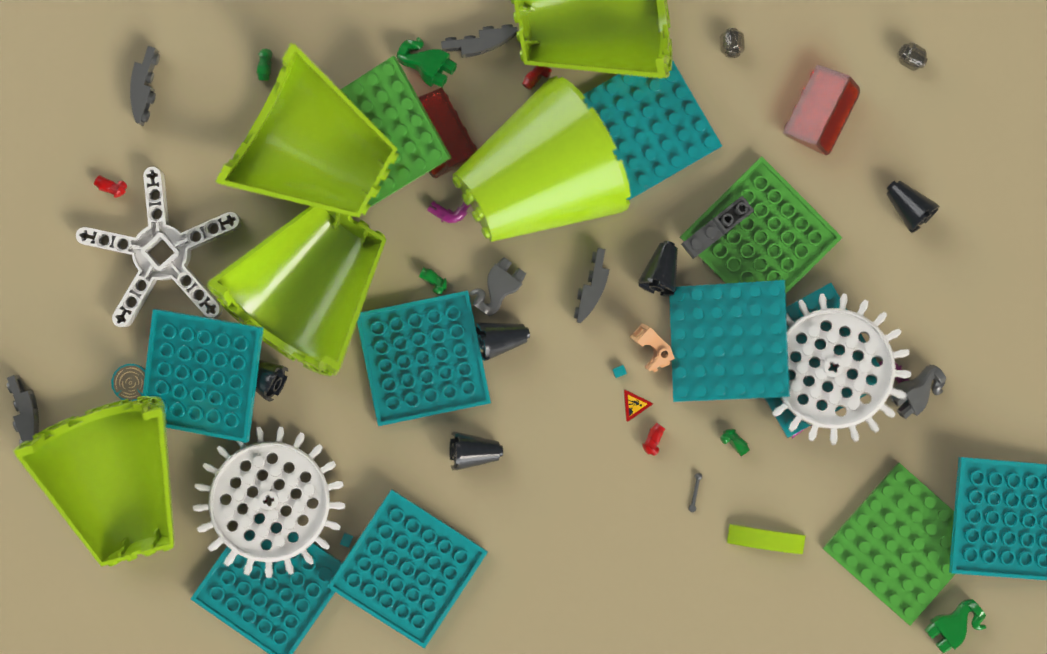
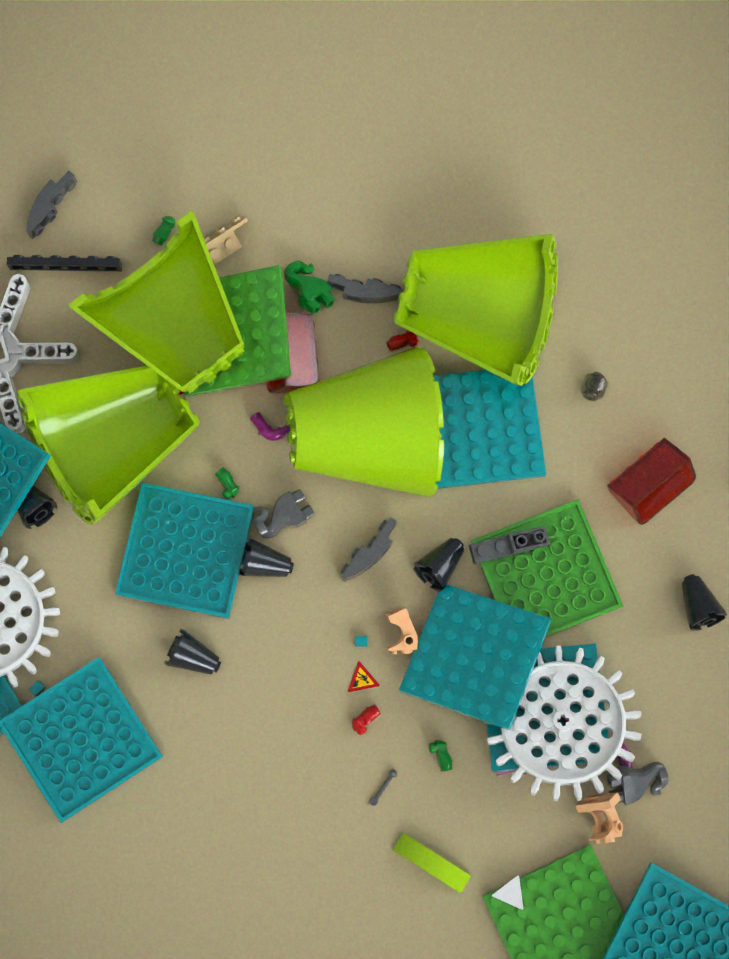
camera: 30 degrees right, 10 degrees down
(178, 140) = (56, 263): none -> black plate
(325, 50) = (224, 240): none -> tan bracket
(847, 536) = (511, 893): none -> white sticker
(905, 445) = (602, 829): none -> light nougat tile

